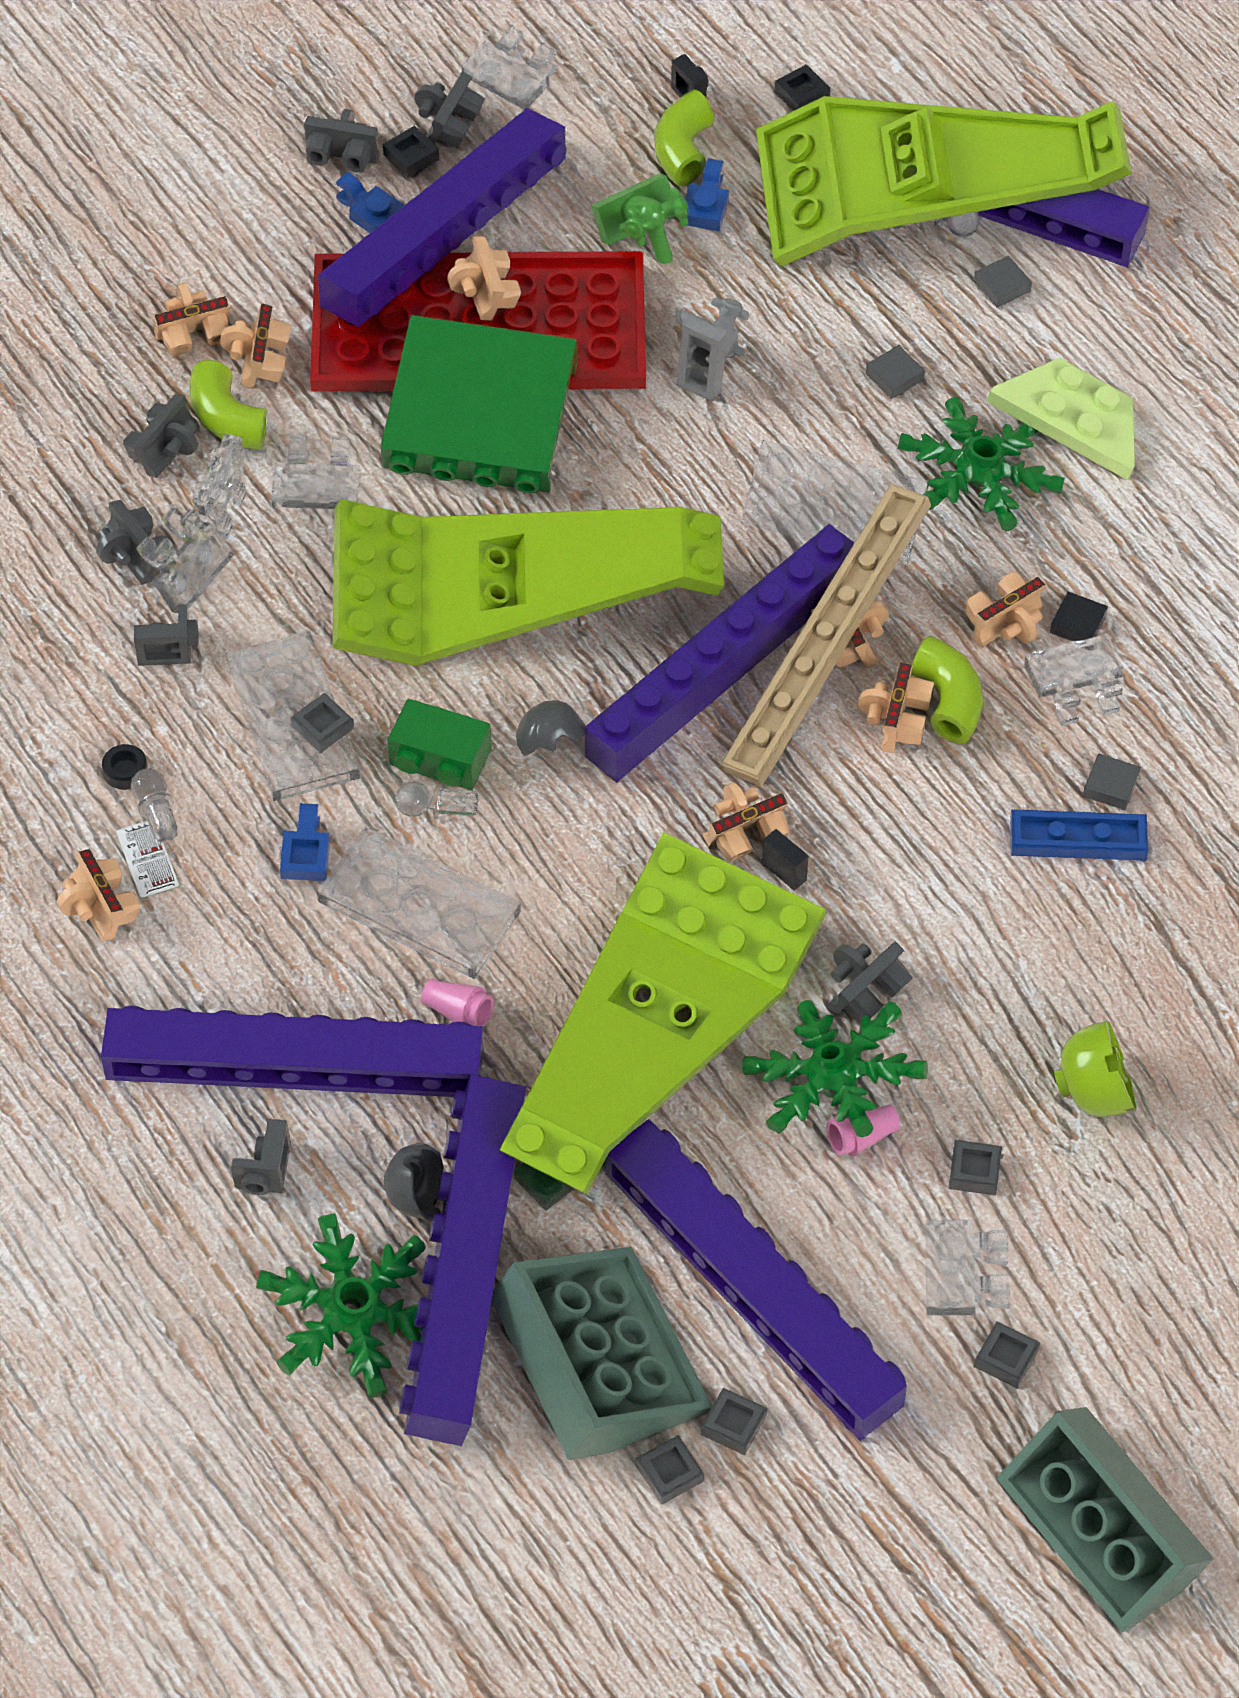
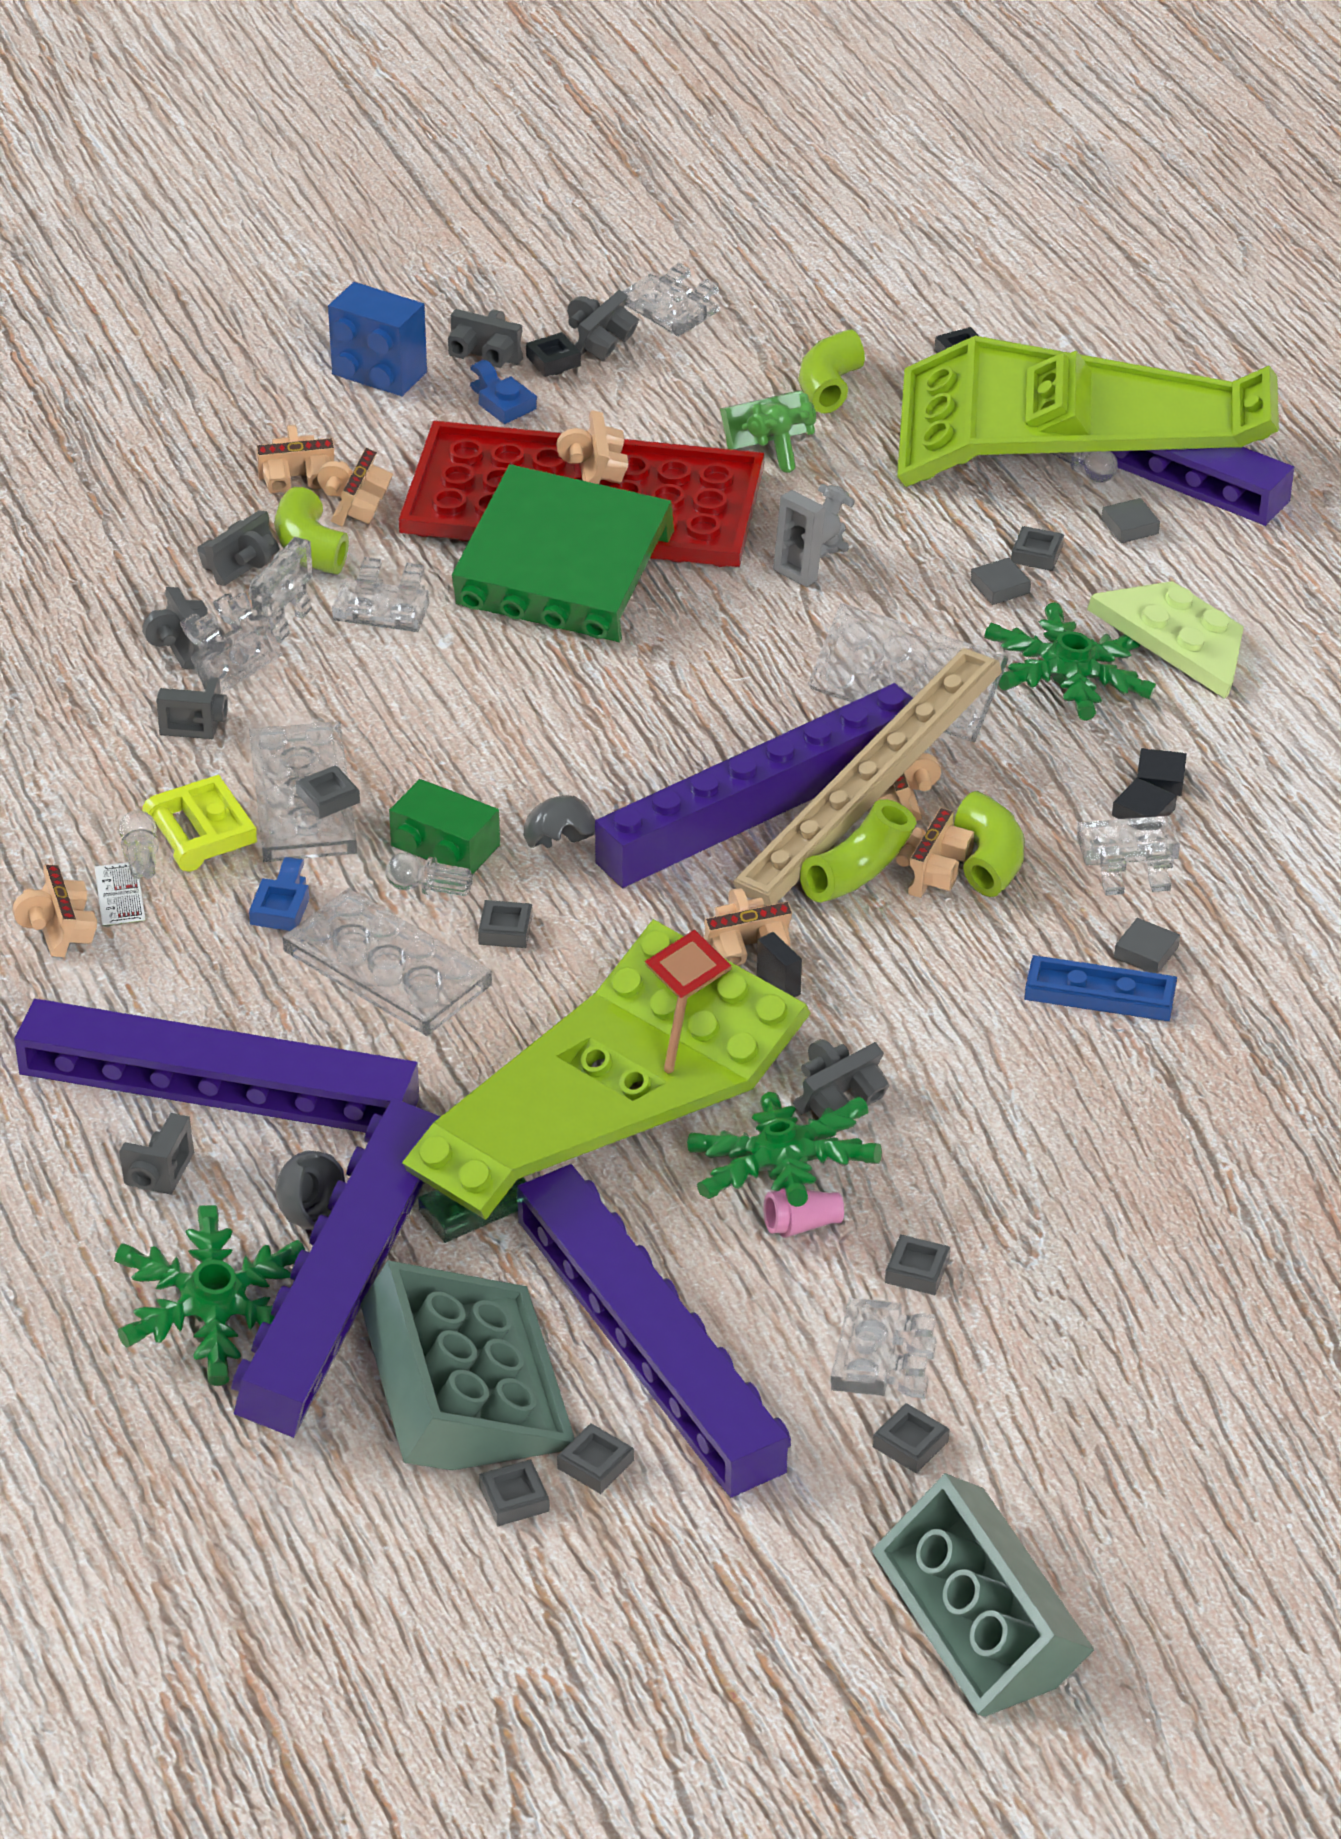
camera: 10 degrees right, 15 degrees down
(122, 764) = (113, 808): black tile -> none
(217, 760) = (212, 812): none -> neon yellow plate
(240, 164) = (377, 338): none -> blue brick
(428, 584) = (486, 700): lime wing -> none
(441, 217) = (563, 400): dark purple brick -> none
(458, 1001) = (403, 1044): bright pink cone -> none
(519, 842) = (505, 924): none -> dark grey tile
(687, 77) = (846, 317): black plate -> none
(707, 201) = (843, 426): blue plate -> none
(708, 885) = (685, 969): none -> piece
(834, 723) = (860, 855): none -> lime cylinder
(921, 327) = (1037, 548): none -> dark grey tile
(1011, 615) = (1070, 787): light nougat hips -> none
(1087, 577) = (1163, 769): none -> black tile
(1096, 1072) = (1066, 1187): lime cylinder -> none

